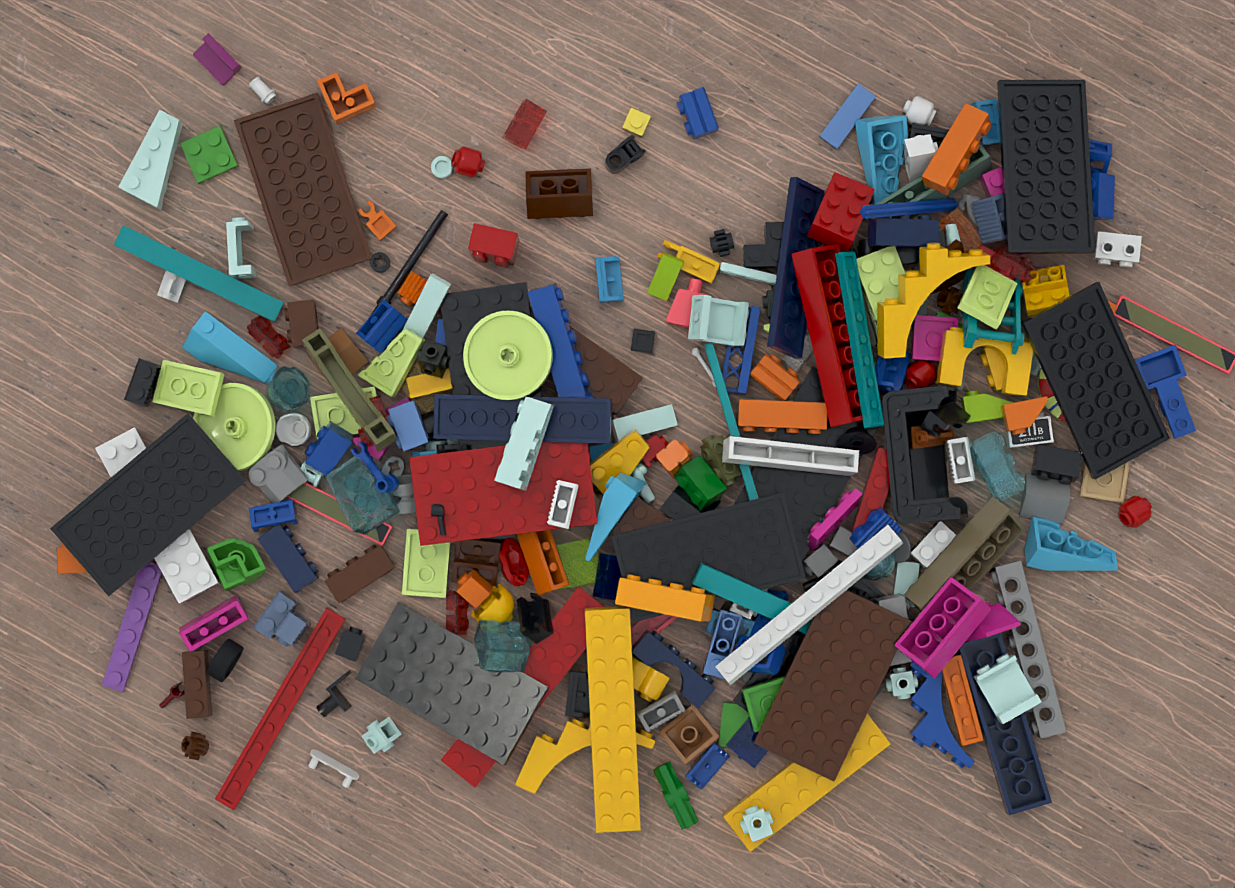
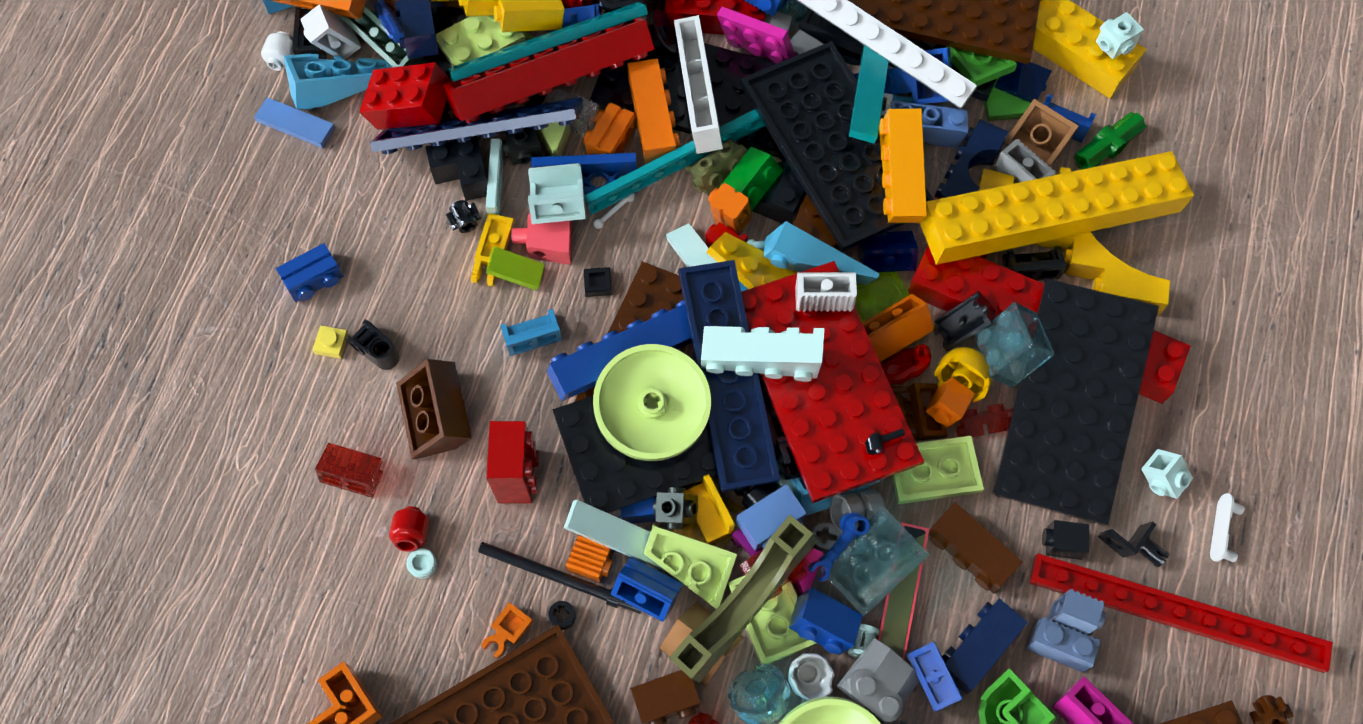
camera: 100 degrees left, 20 degrees down
(225, 660) = (1147, 697): black tyre -> none

